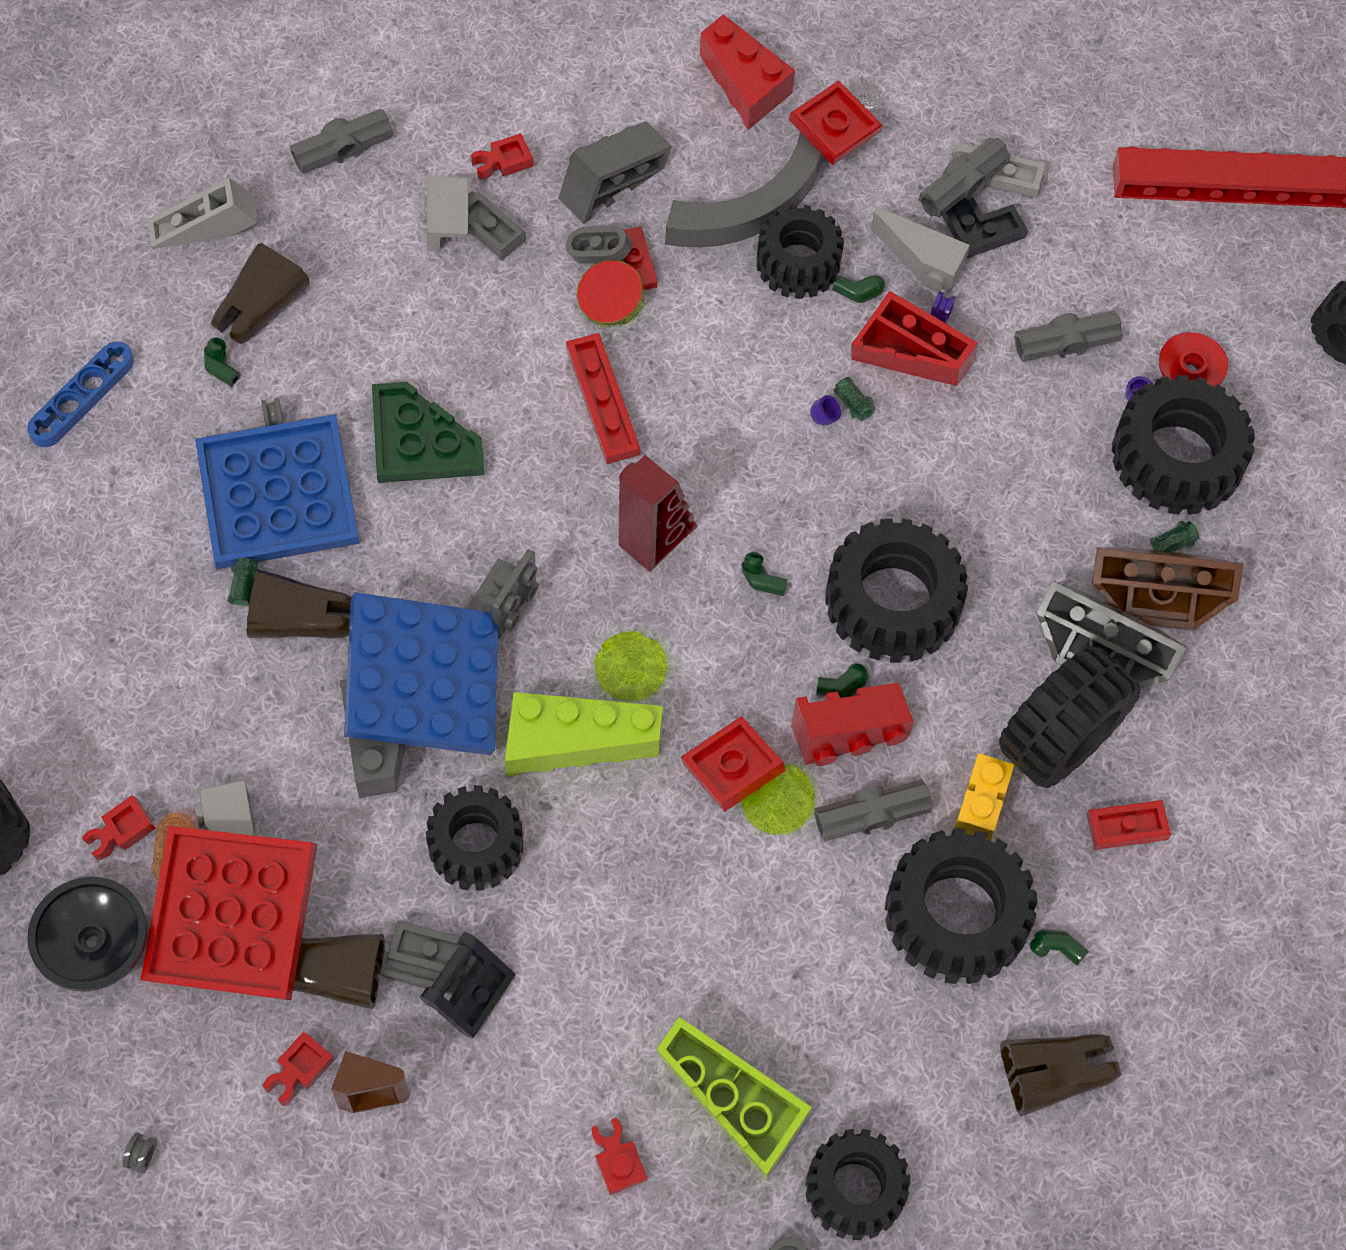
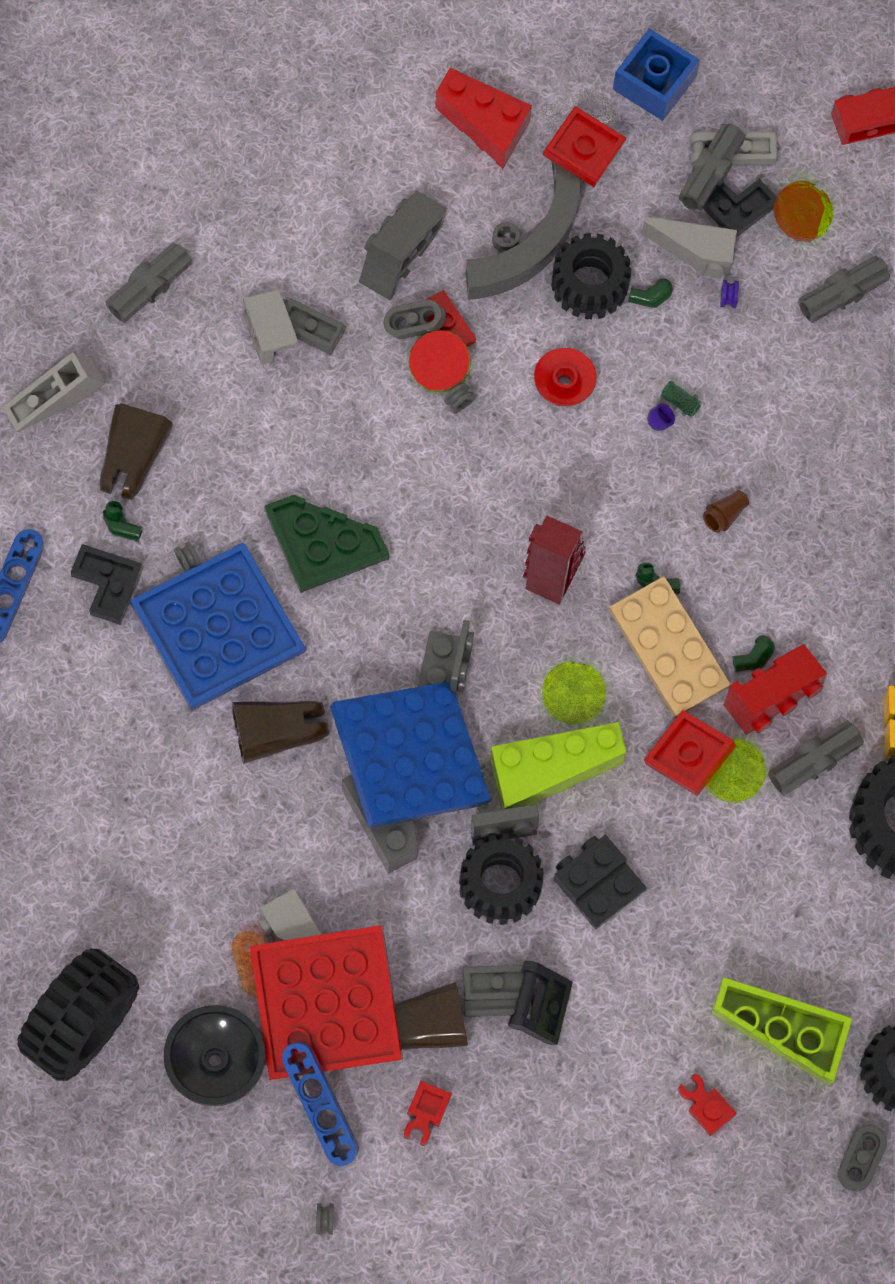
camera: 20 degrees left, 5 degrees up
(124, 827) = (204, 955): red plate -> none
(189, 415) = (115, 579): none -> black plate
(189, 1020) = (314, 1106): none -> blue beam
(242, 581) = (220, 715): clear green pin -> none
(368, 1084) = (493, 1106): reddish brown tile -> none
(506, 154) = (300, 255): red plate -> none
(513, 780) = (514, 822): none -> dark grey plate
(584, 872) = (598, 880): none -> black plate
(603, 398) = (466, 460): red plate -> none
(618, 334) = (459, 398): none -> dark grey bush
(725, 184) = (498, 241): none -> dark grey bush
(741, 331) = (568, 364): none -> red dish
(750, 646) = (669, 646): none -> tan plate
(853, 520) = (724, 512): none -> reddish brown cone
(887, 630) = (768, 600): black tyre -> none
(913, 343) = (717, 334): red wedge -> none
(937, 76) = (656, 74): none -> blue brick
(1049, 248) = (803, 211): none -> tile

